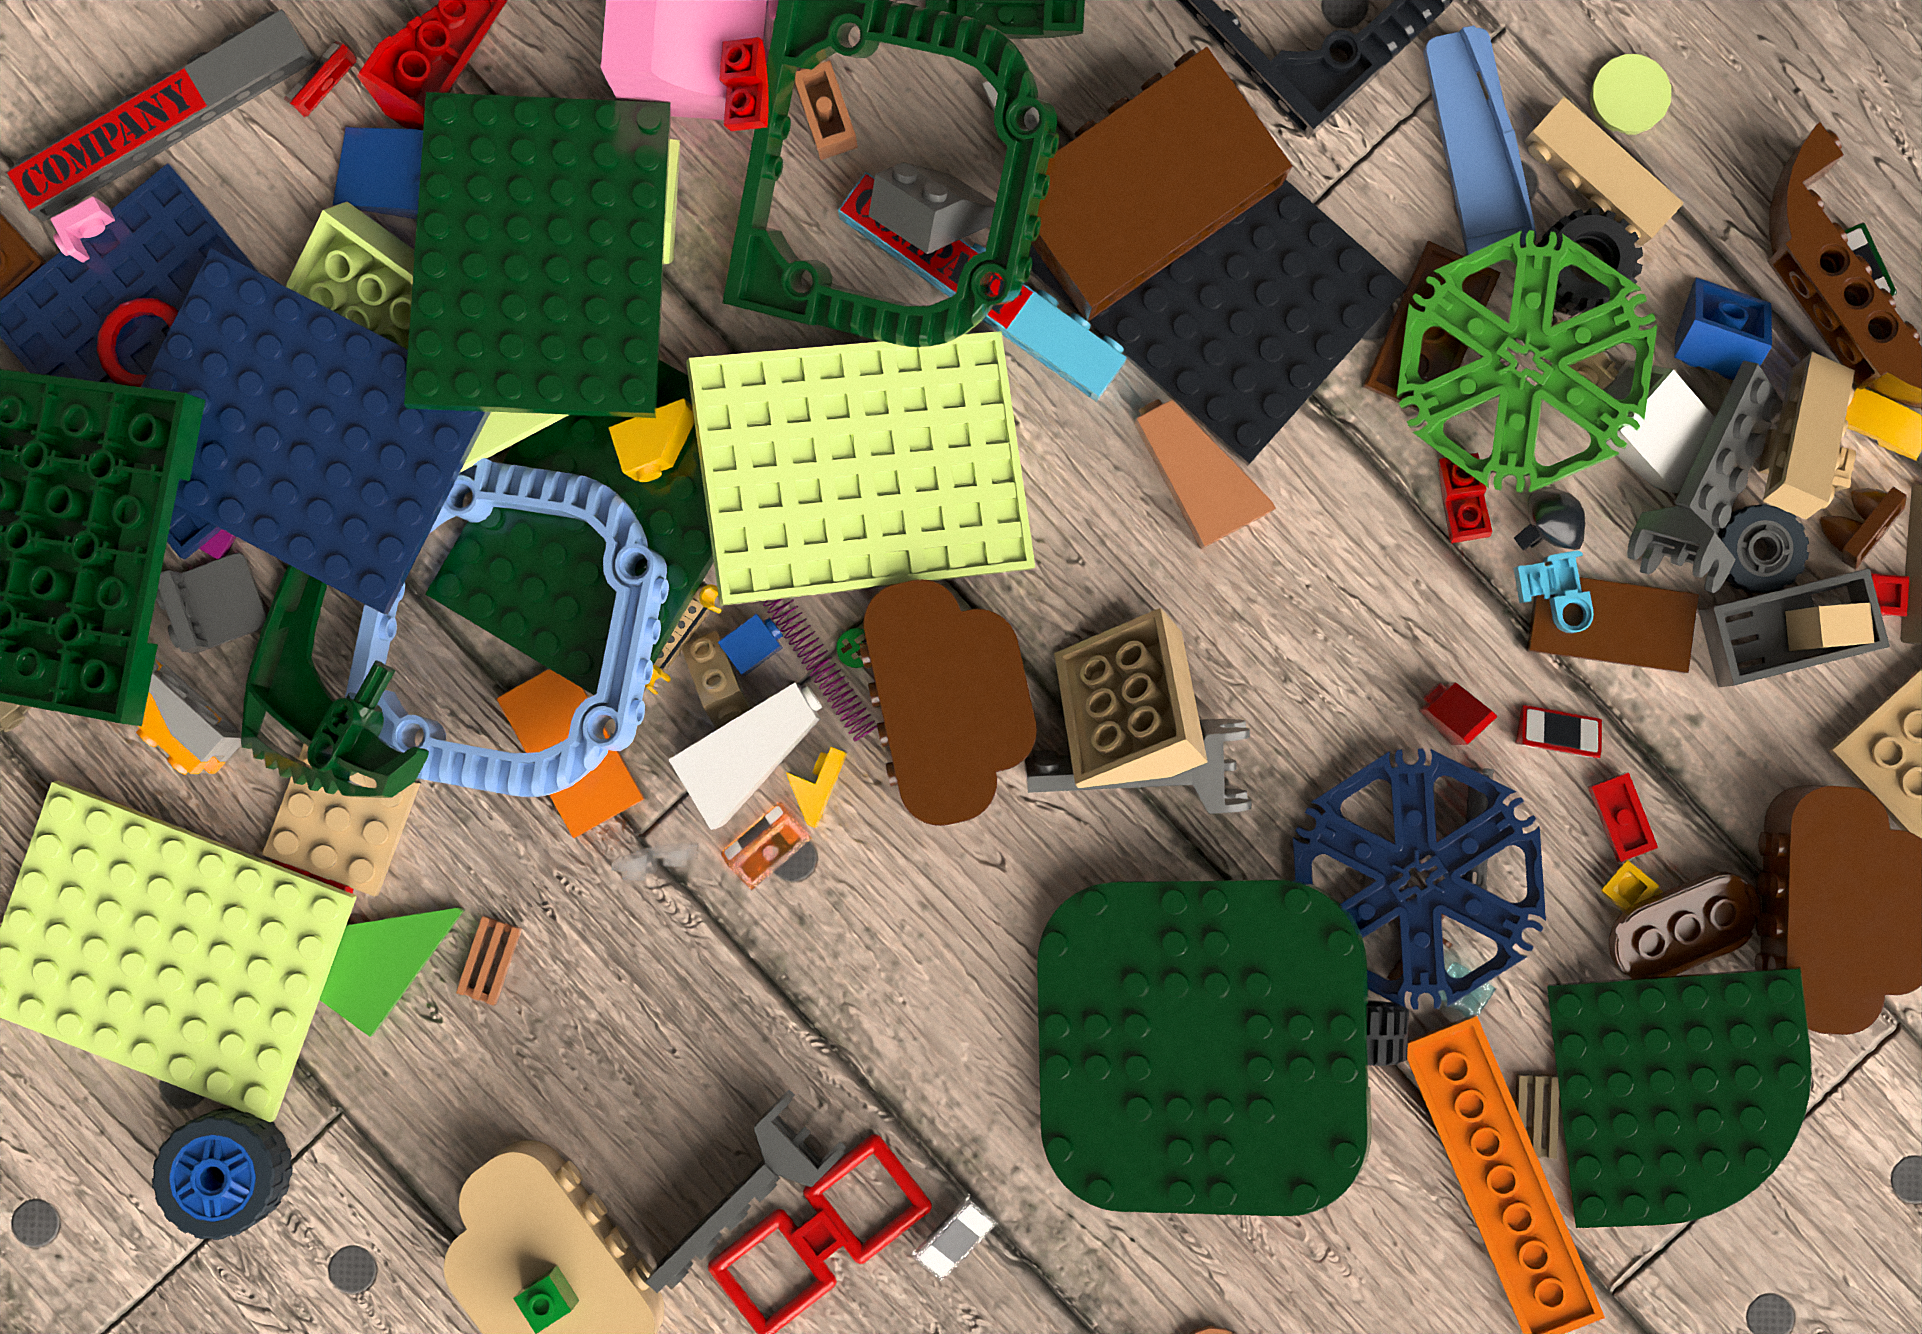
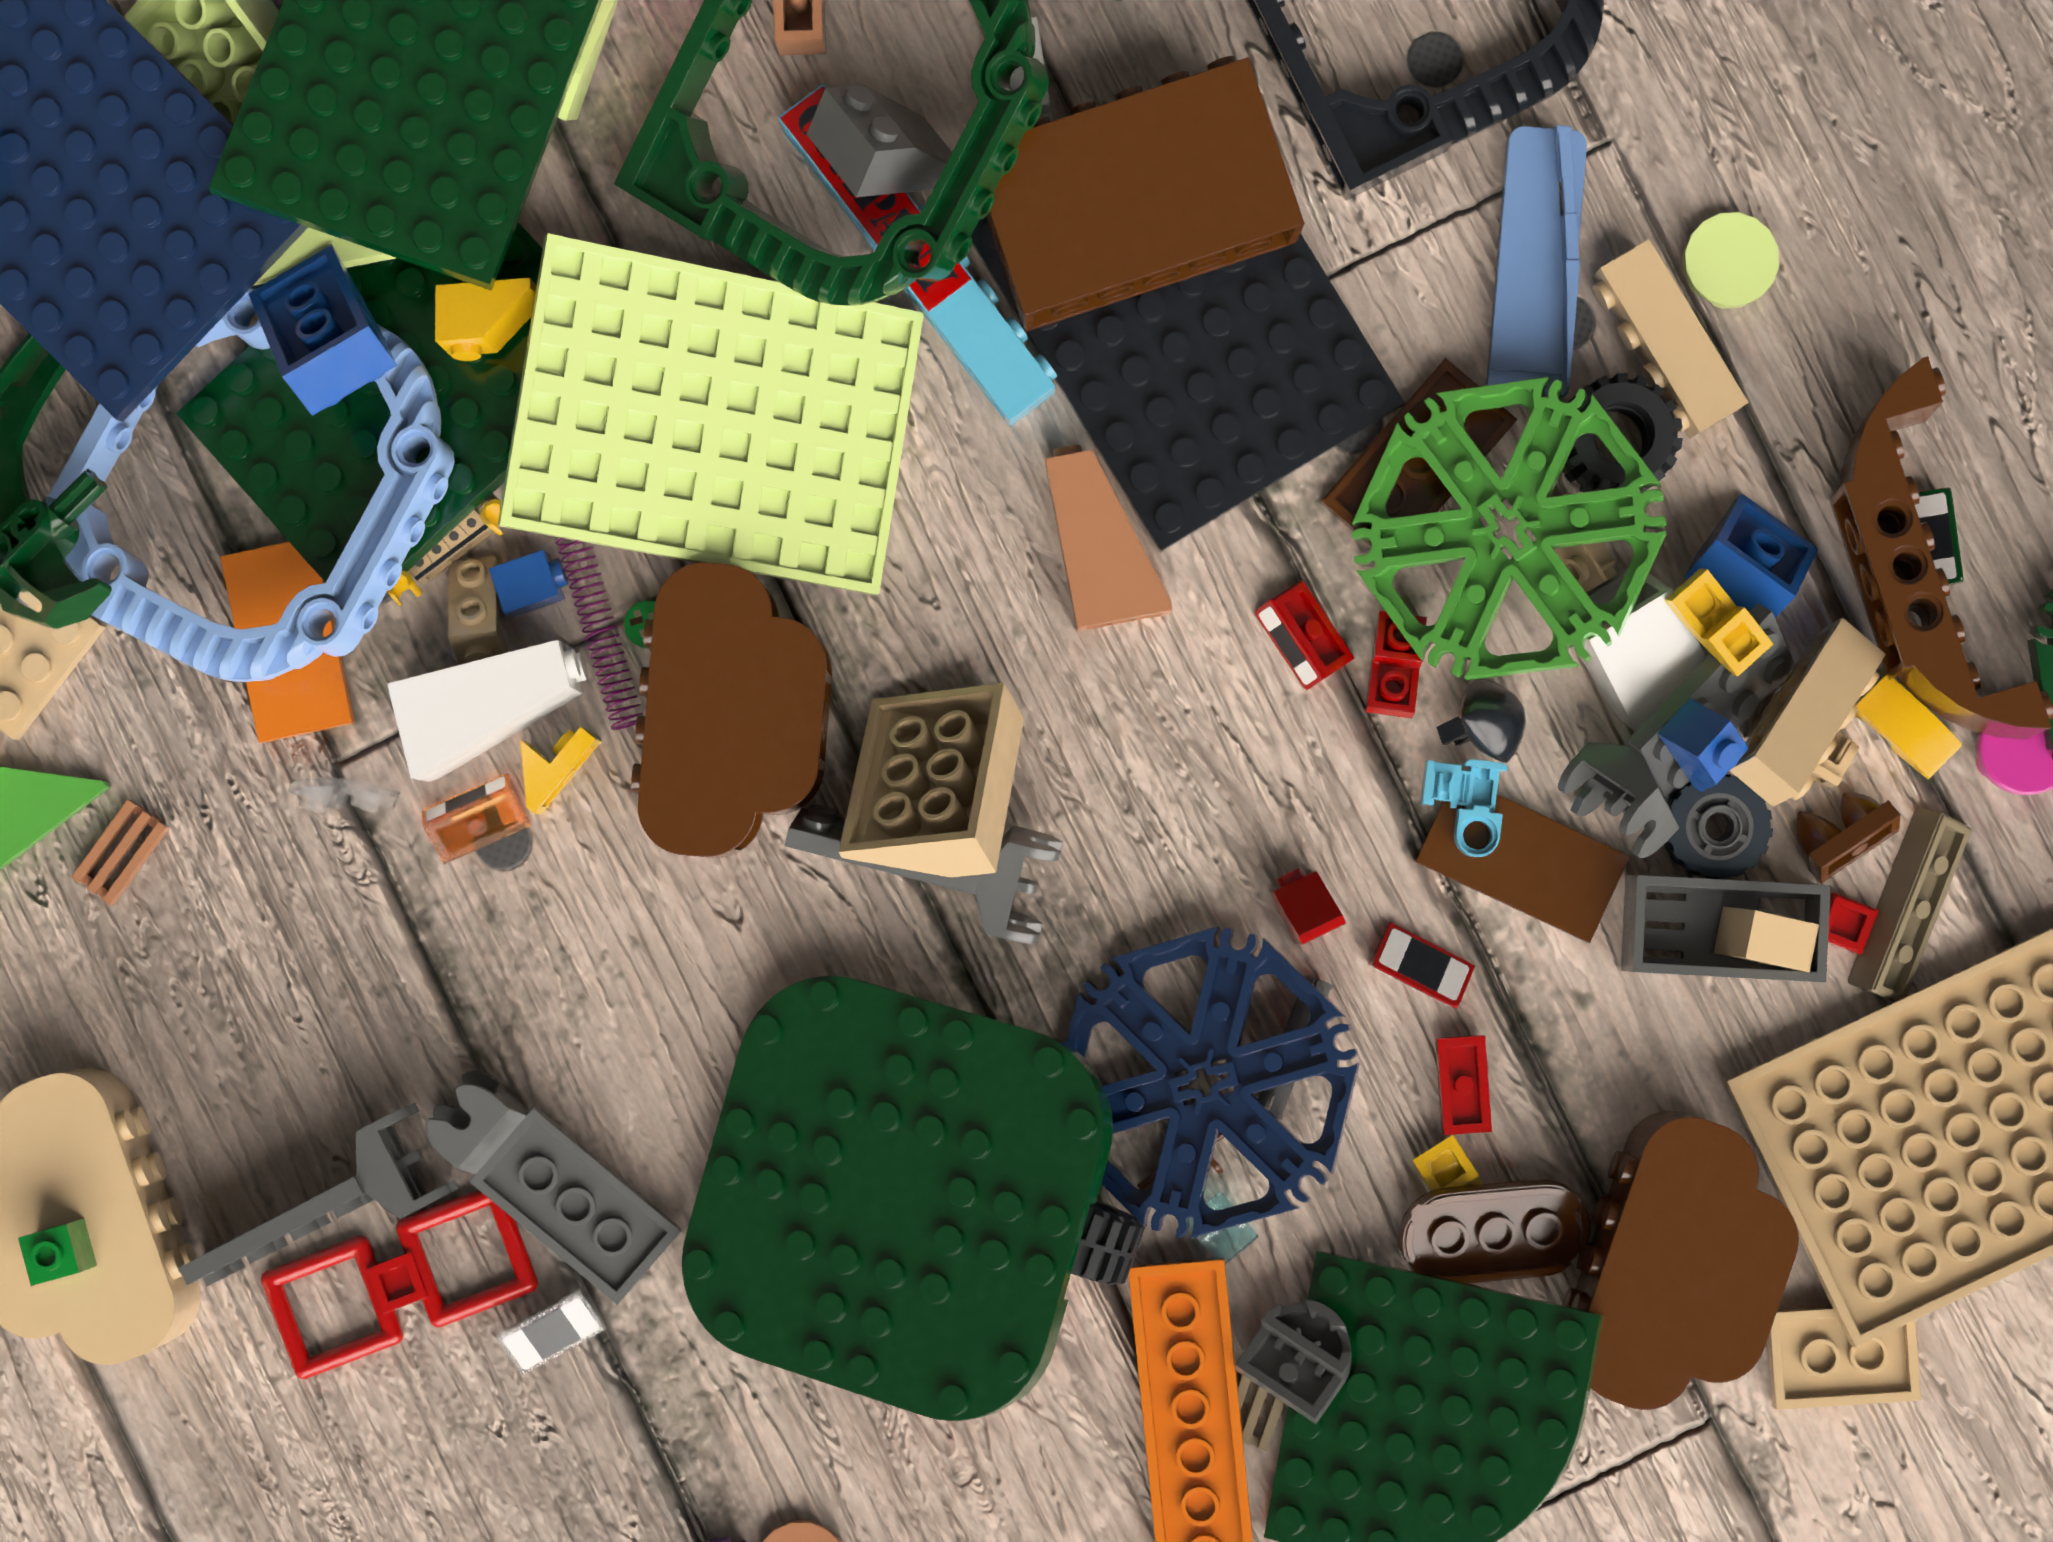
camera: 20 degrees right, 0 degrees up
(529, 491) = (321, 331): none -> blue slope
(920, 1121) = (551, 1184): none -> dark grey hinge
(1383, 497) = (1304, 635): none -> red slope
(1563, 1074) = (1299, 1356): none -> dark grey slope
(1718, 386) = (1718, 623): none -> yellow slope
(1739, 486) = (1702, 744): none -> blue slope

